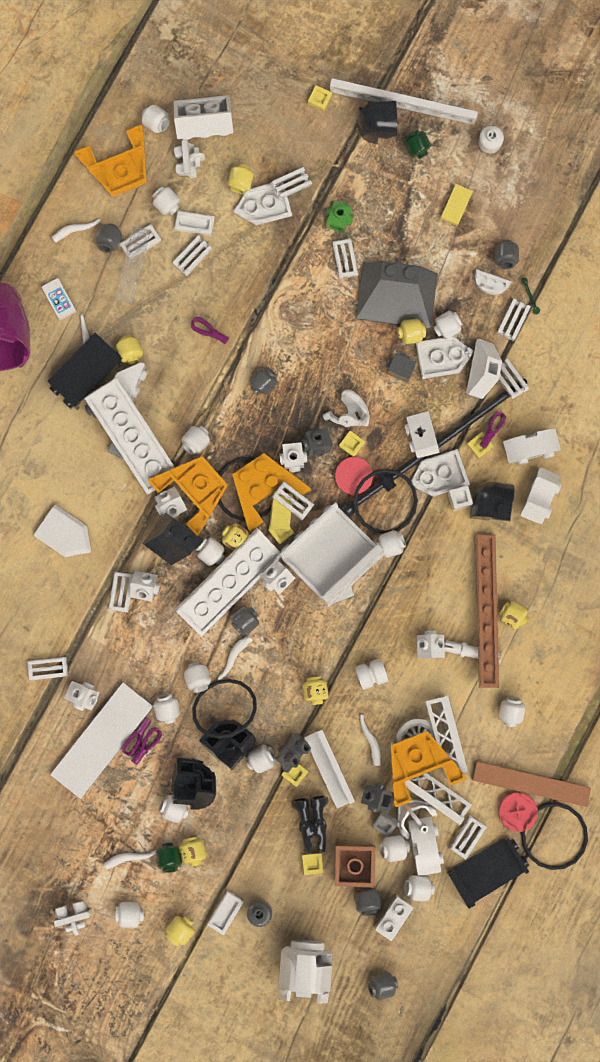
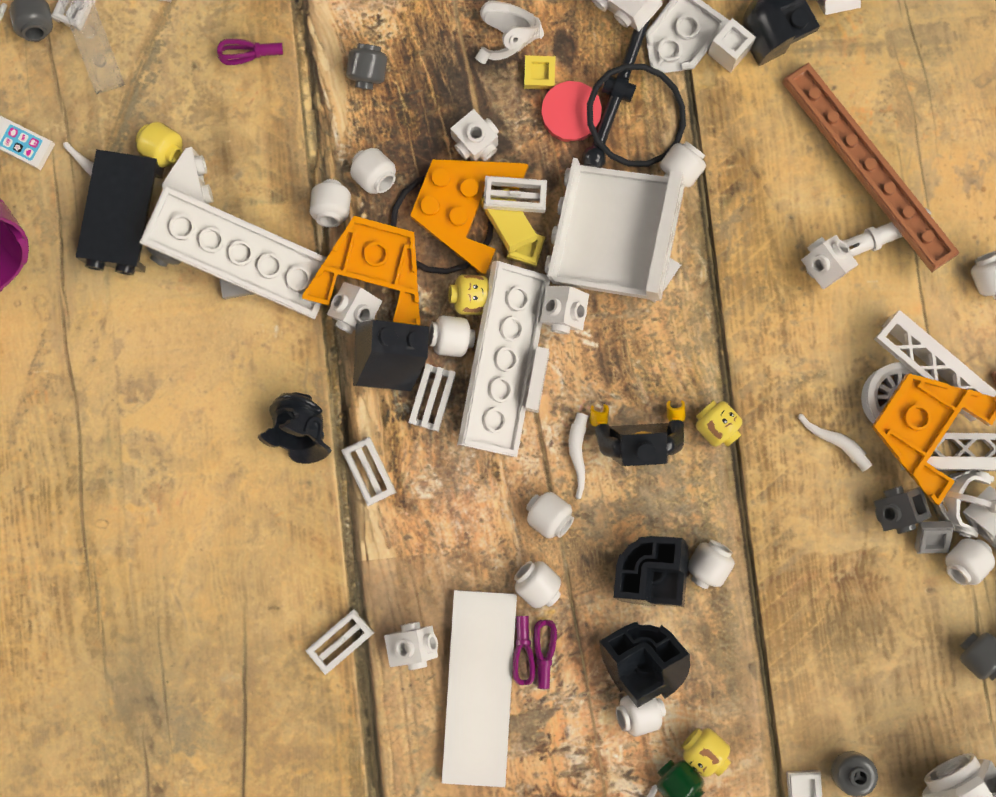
camera: 30 degrees left, 0 degrees up
(64, 533) = (232, 448): white tile -> none
(99, 545) = (297, 428): none -> black helmet
(144, 586) = (394, 441): white brick -> none
(173, 571) = (420, 395): none -> white tile
(229, 438) = (373, 171): none -> white head
(235, 732) = (663, 537): black piece -> none
(241, 601) = (537, 379): none -> white tile
(245, 620) = (561, 395): dark grey head -> none
(269, 673) = (643, 442): none -> black torso
(290, 754) = (746, 528): dark grey hips -> none
(295, 775) = (766, 553): light yellow tile -> none
(312, 863) = (875, 657): light yellow tile -> none
(317, 442) = (494, 96): dark grey brick -> none
(317, 827) = (849, 605): black piece -> none
(329, 769) = (810, 515): white fence -> none
(354, 865) = (936, 620): nougat brick -> none
(371, 674) = (775, 355): white wheel -> none
(514, 615) = (908, 148): light yellow head -> none

